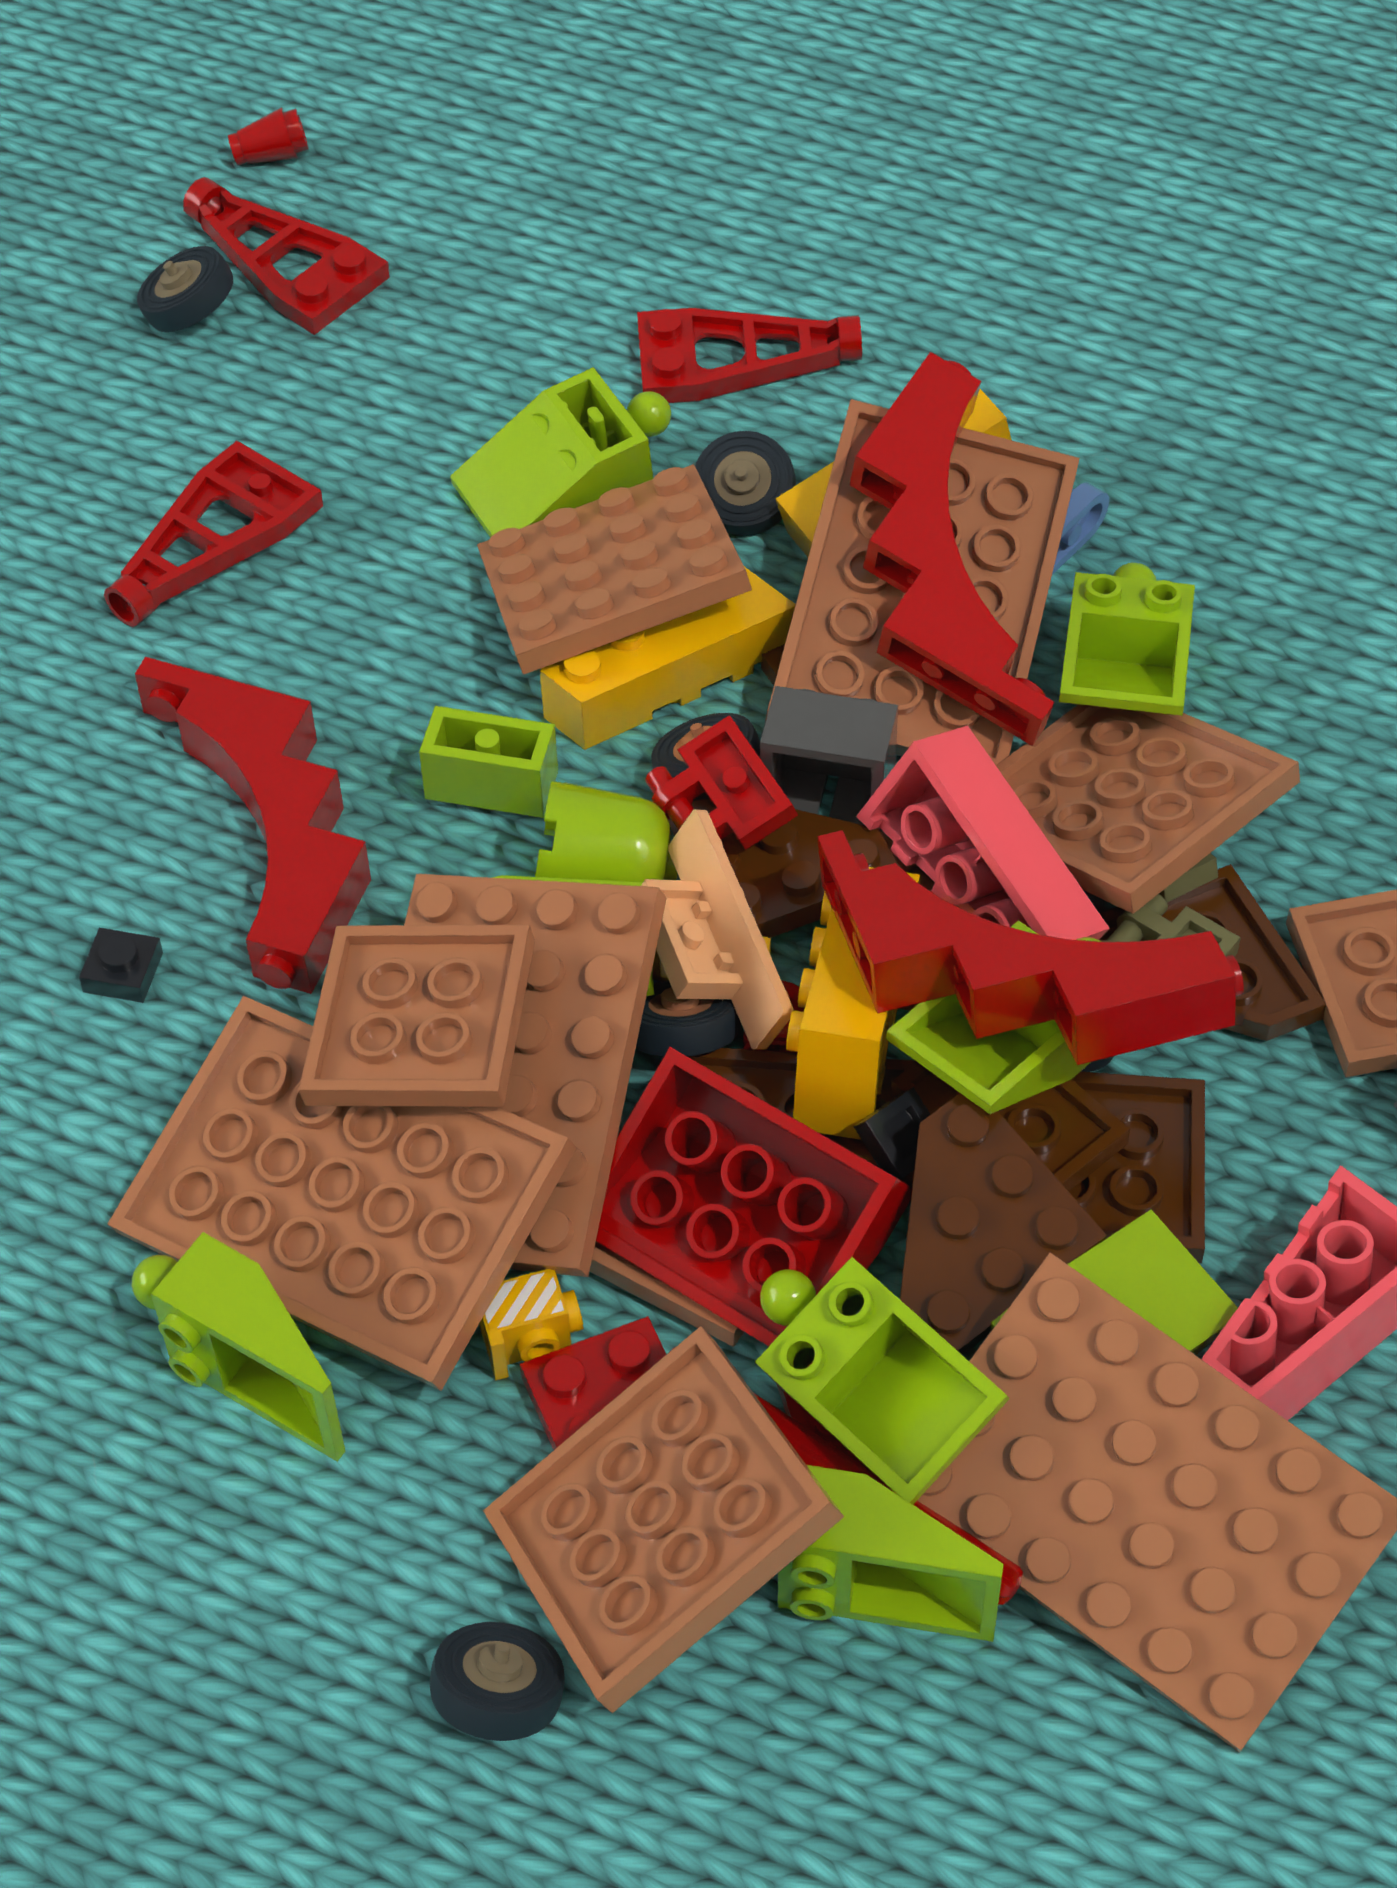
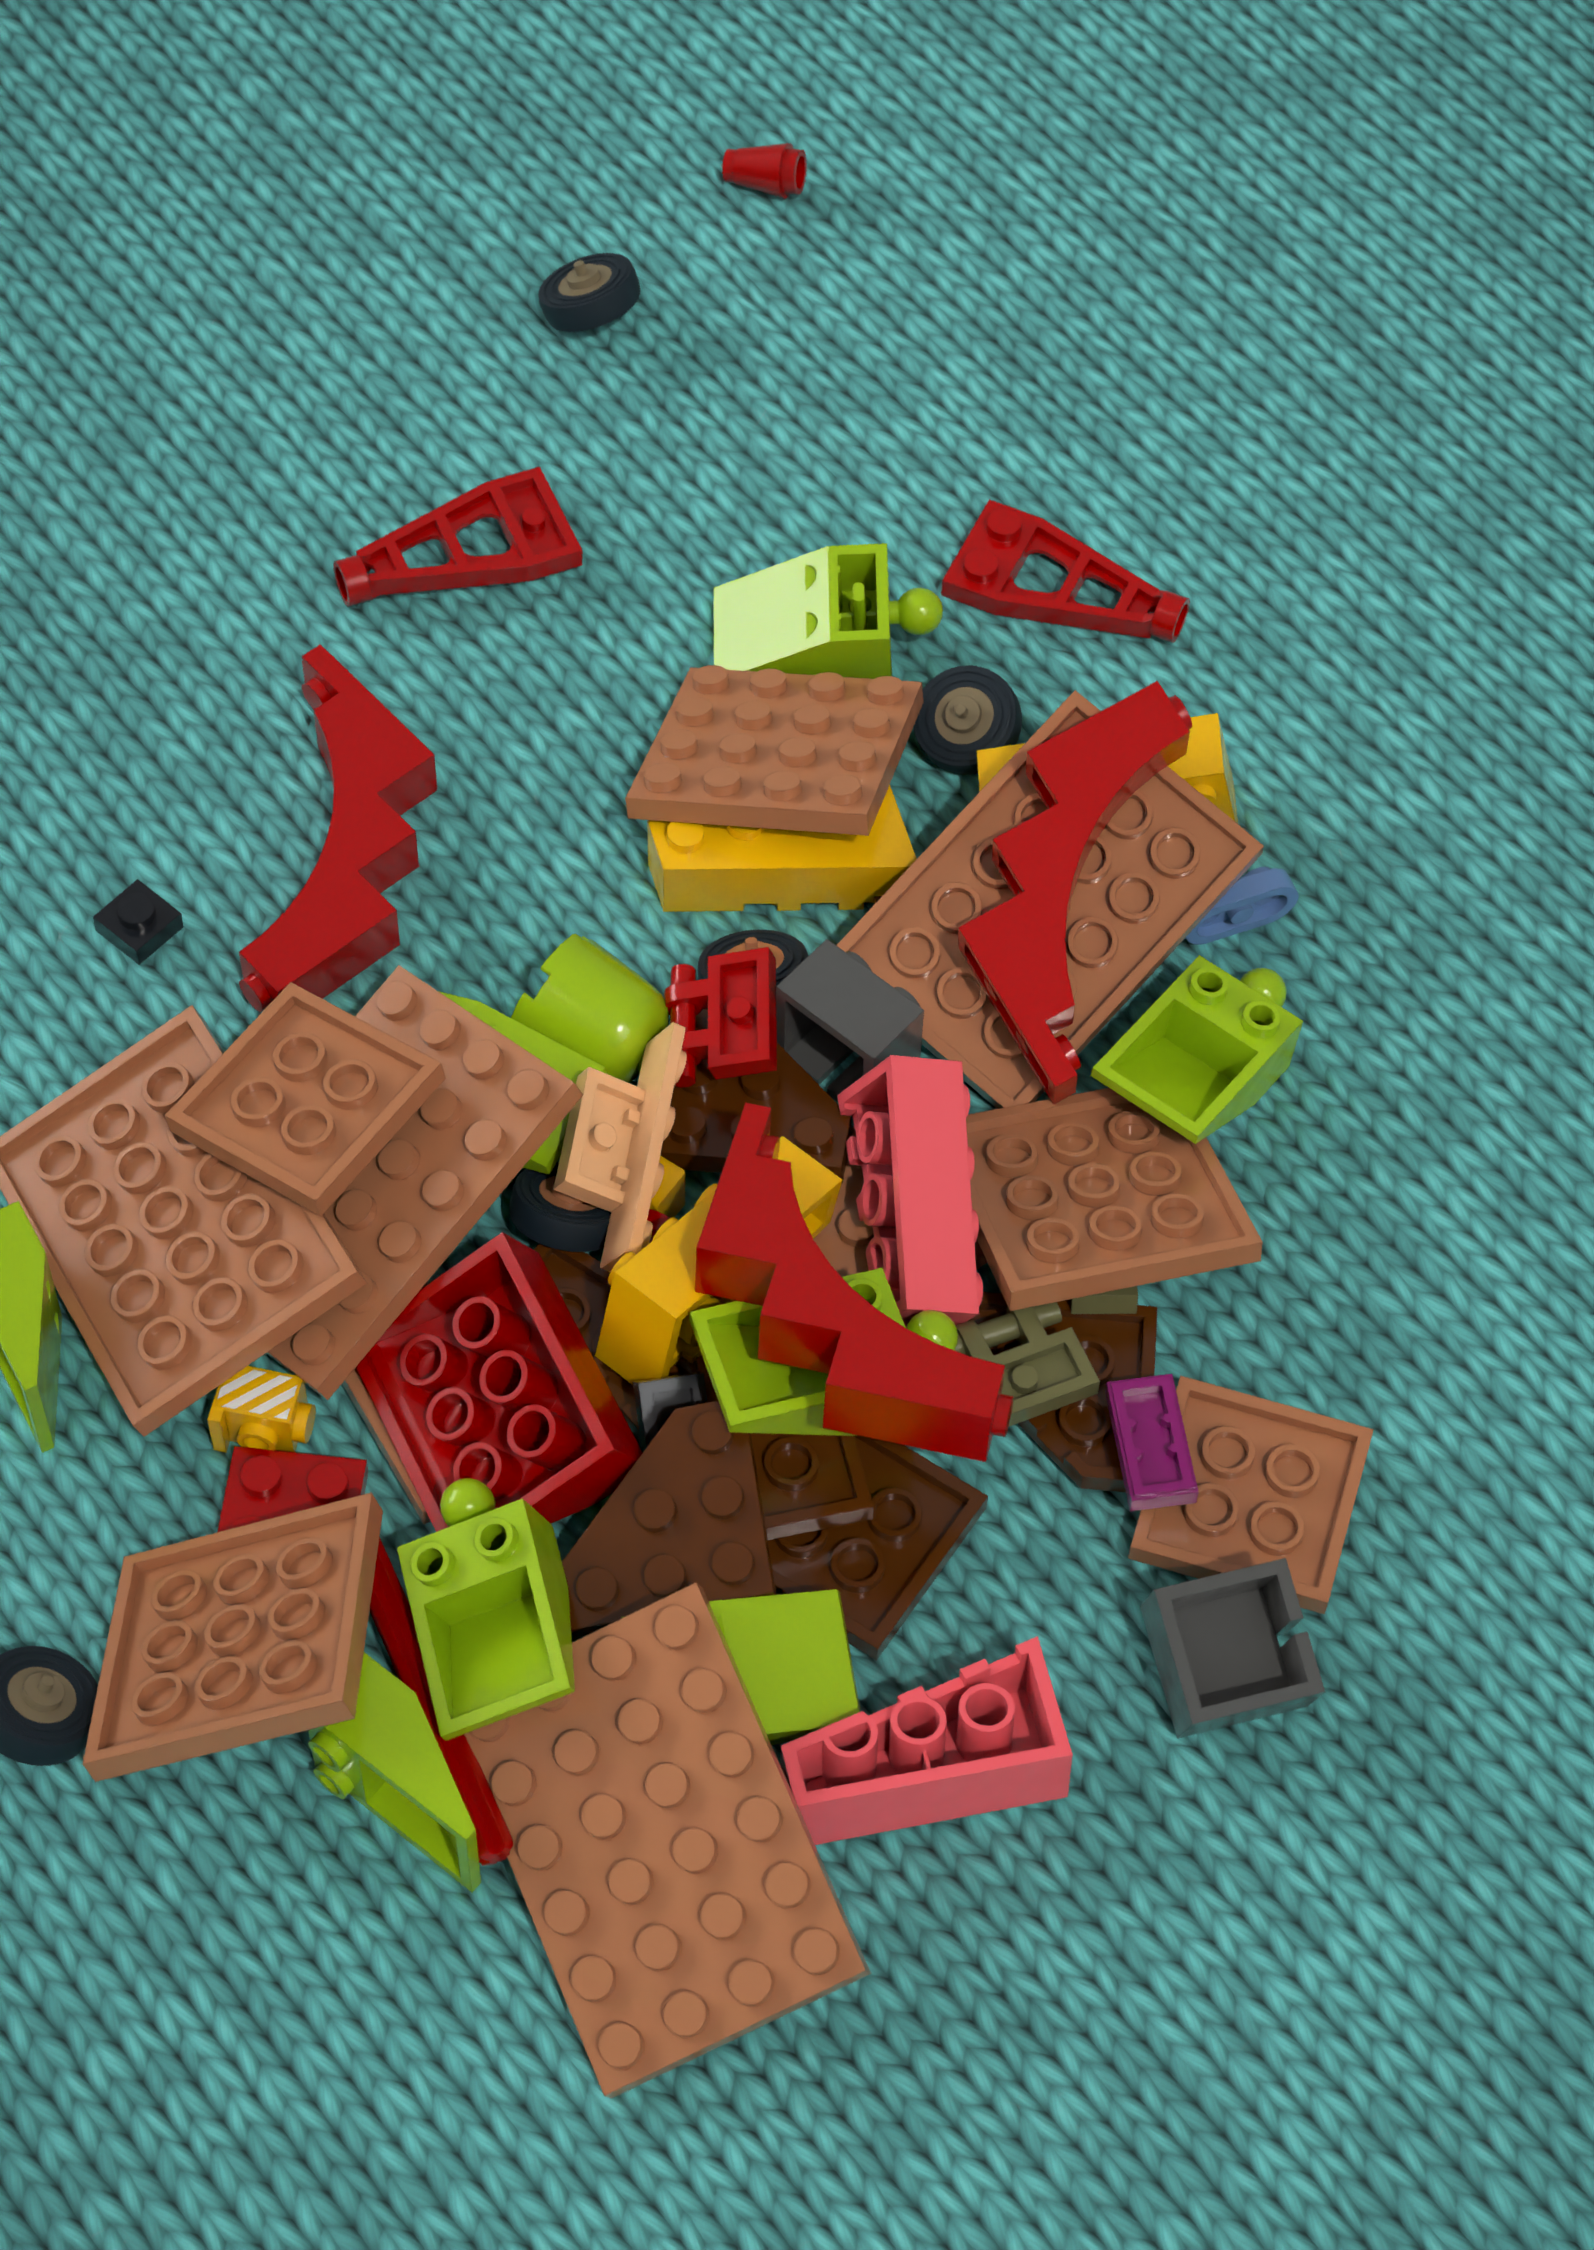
camera: 25 degrees right, 5 degrees up
(316, 295) = (721, 345): red plate -> none
(488, 761) = (554, 882): lime brick -> none
(1313, 968) = (1151, 1442): none -> magenta plate

